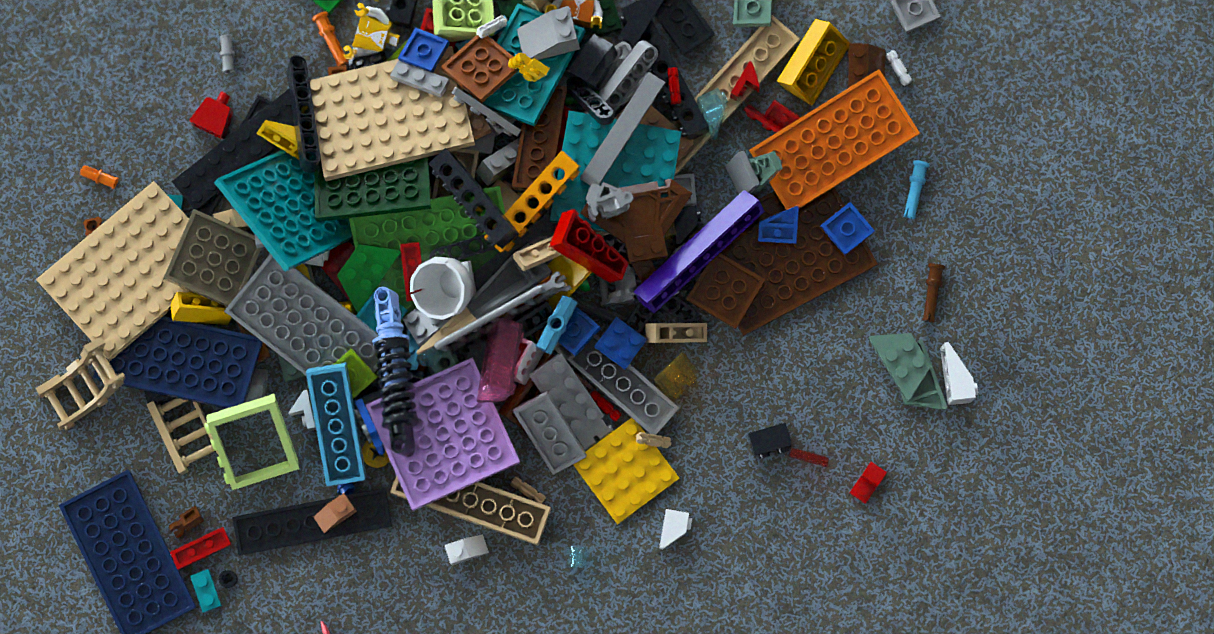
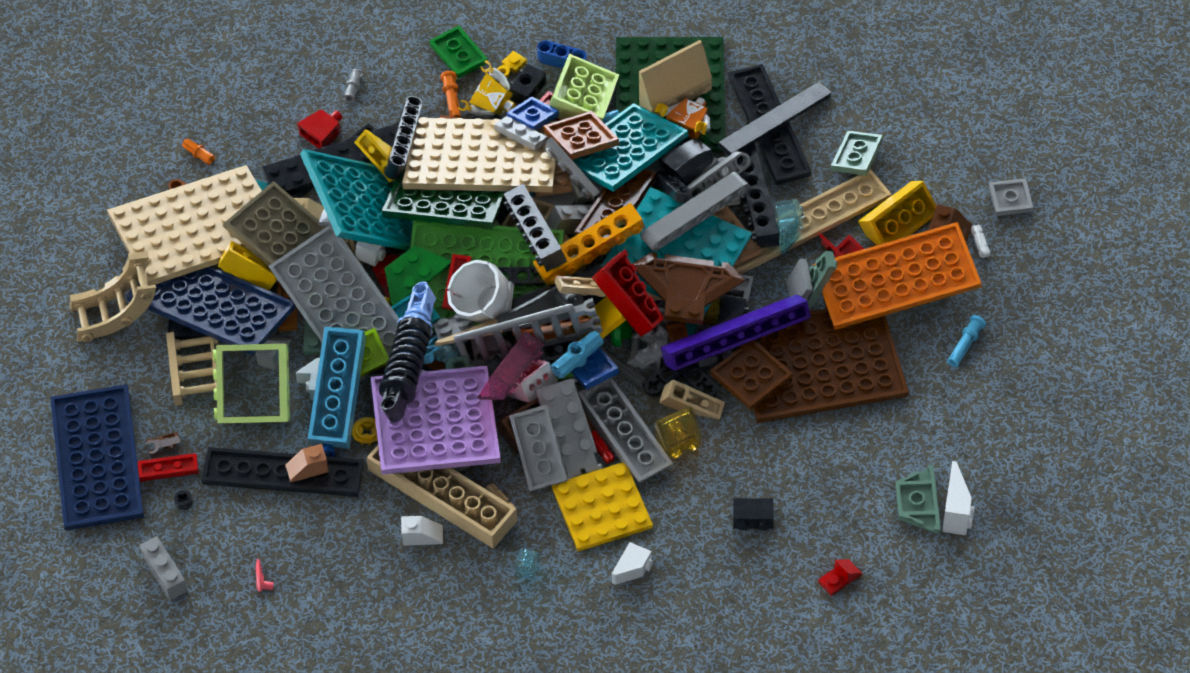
camera: 15 degrees right, 25 degrees down
(205, 590) = (158, 505): teal plate -> none
(368, 426) = (366, 397): blue piece -> none
(491, 26) = (602, 109): white axle -> none
(530, 68) = (625, 136): yellow plate -> none
(549, 35) = (653, 126): light grey slope -> none
(607, 201) = (656, 254): light grey piece -> none
(620, 343) = (634, 392): blue plate -> none
(653, 440) = (638, 483): tan axle -> none
(674, 85) = (757, 194): red axle -> none
(747, 78) = (827, 210): red slope -> none
(780, 227) = (821, 335): blue wing -> none
(809, 457) = (787, 537): clear red tile -> none
(847, 228) = (887, 352): blue plate -> none
(902, 360) = (907, 476): sand green wing -> none
(933, 283) = (959, 423): reddish brown pin -> none

